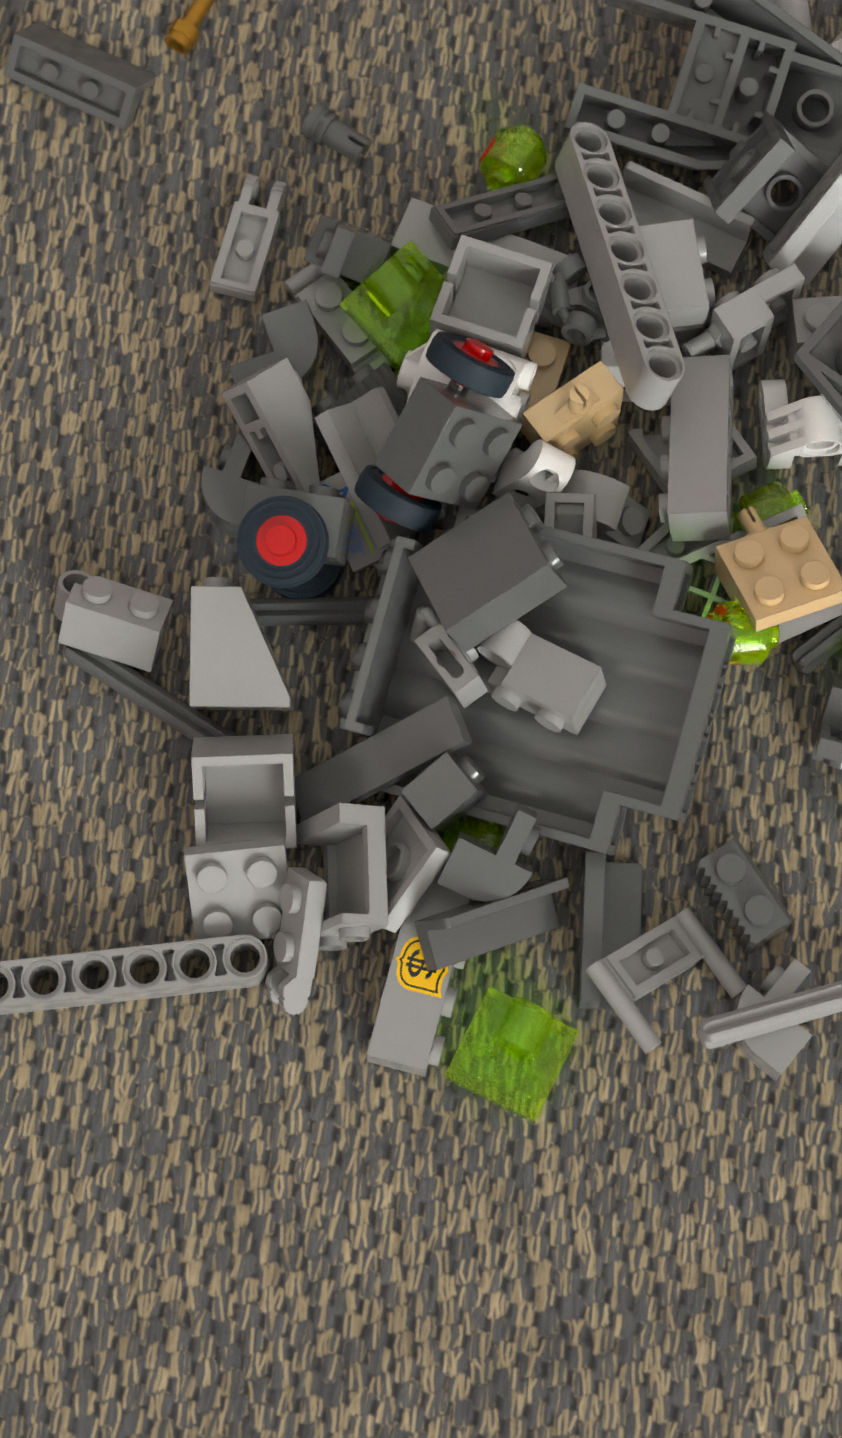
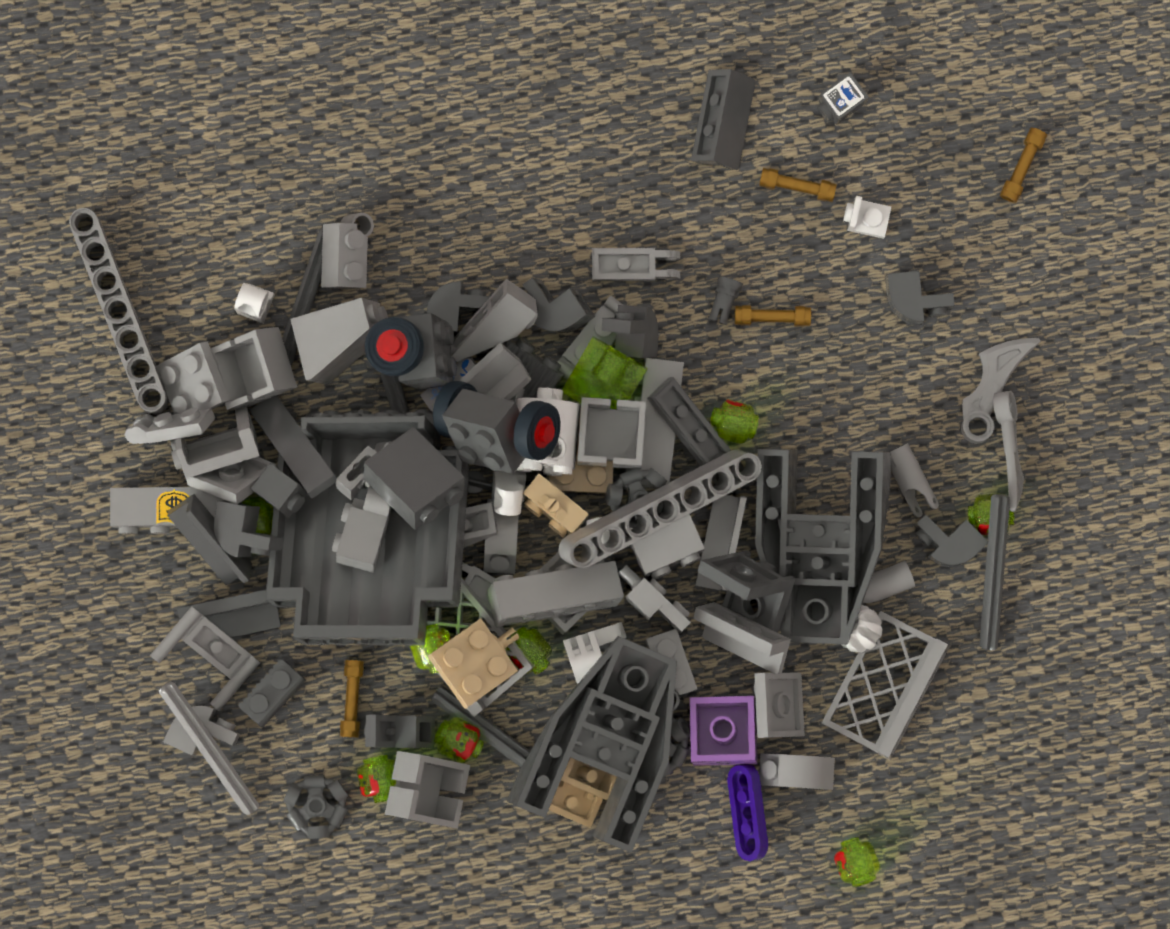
camera: 70 degrees right, 10 degrees up
(144, 771) = (253, 302): none -> white leg
(386, 48) = (799, 316): none -> pearl gold bar
(512, 1054) = (138, 576): clear neon green plate -> none
(736, 773) = (353, 670): none -> pearl gold bar

